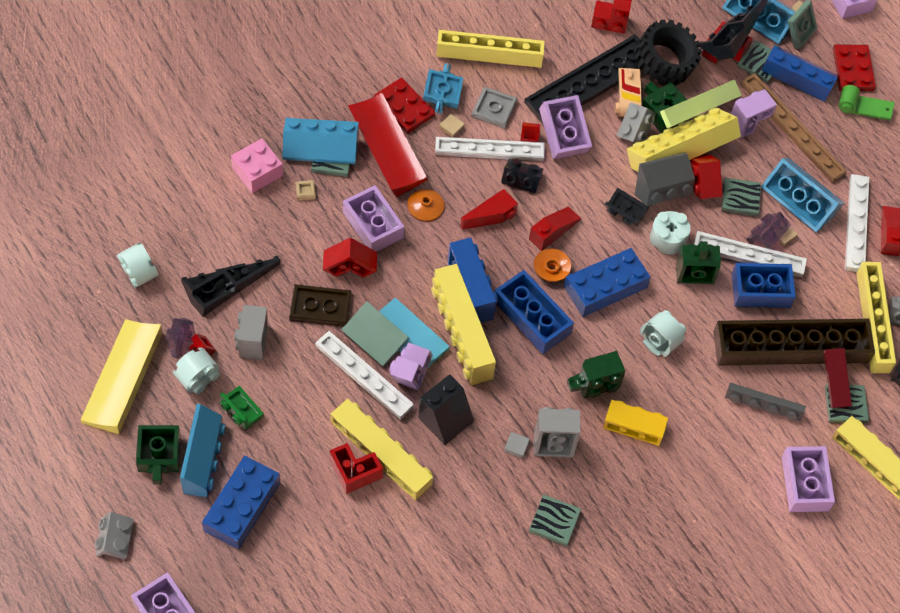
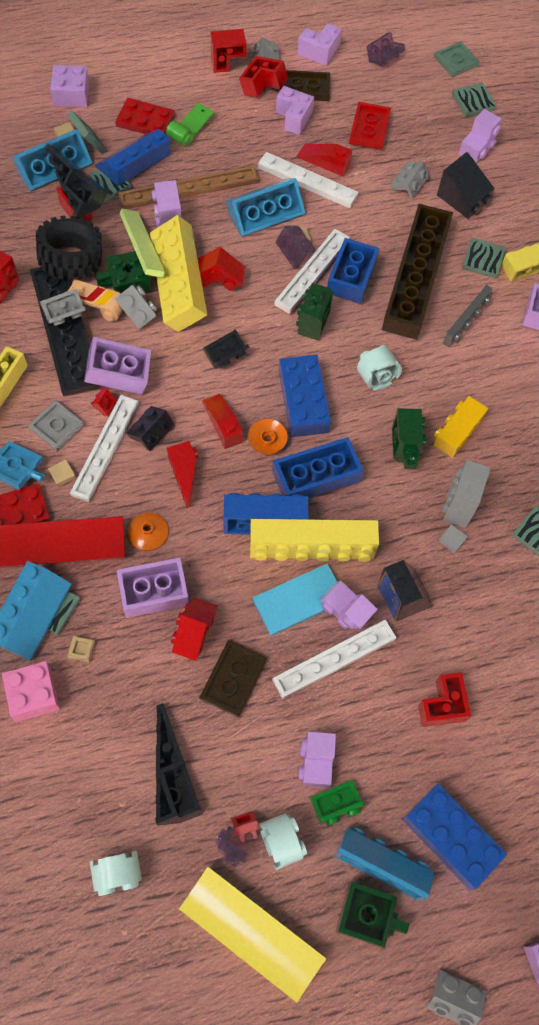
camera: 70 degrees left, 5 degrees up
(252, 332) = (252, 761): light grey brick -> none
(271, 383) = (318, 755): none -> lavender brick
(369, 438) = (425, 669): light yellow brick -> none
(375, 334) = (291, 631): sand green tile -> none
(605, 68) = (62, 306): none -> light grey bracket
(665, 179) = (216, 303): dark grey slope -> none
(670, 232) = (268, 322): light aqua brick -> none
(741, 197) = (250, 253): sand green tile -> none
(837, 378) = (467, 250): dark red tile -> none
(875, 308) = (406, 198): light yellow brick -> none

